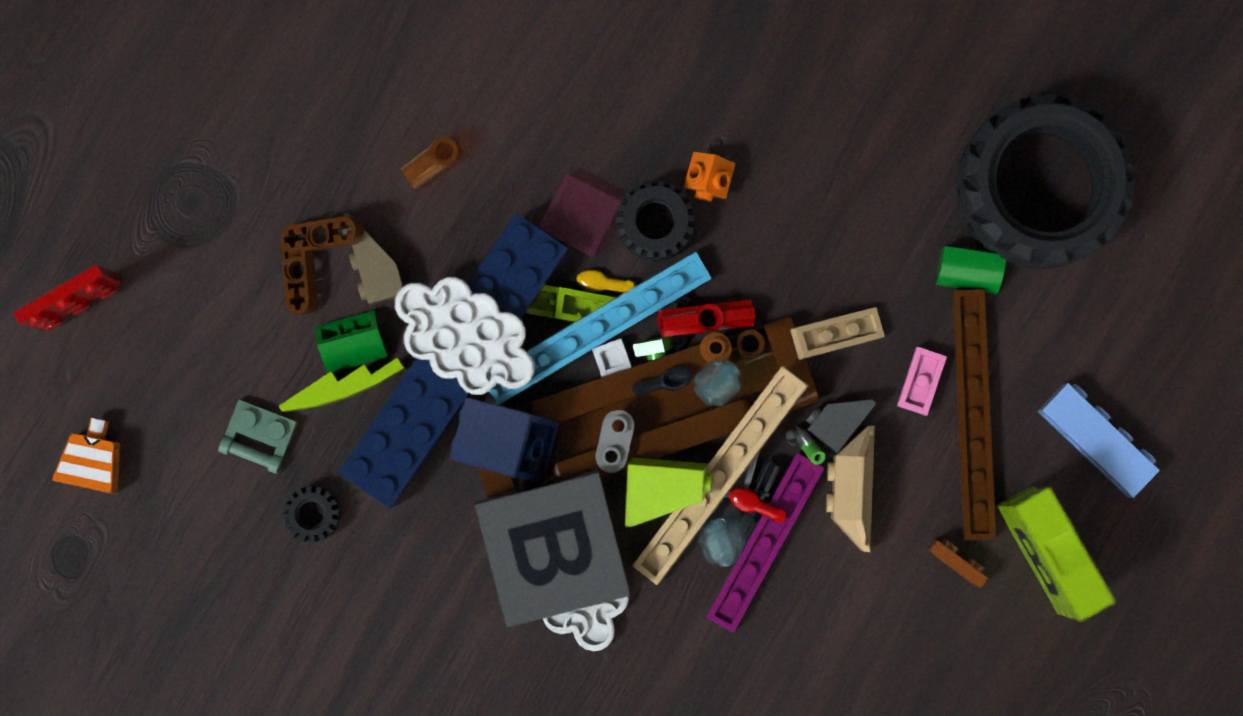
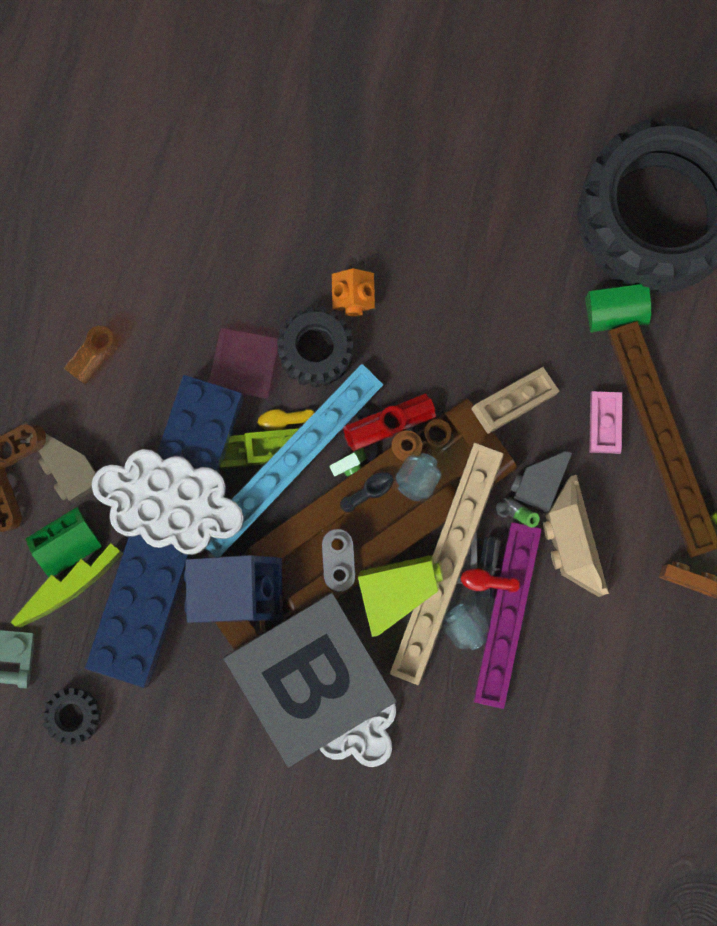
camera: 20 degrees left, 5 degrees down
(611, 358) = (312, 485): white plate -> none

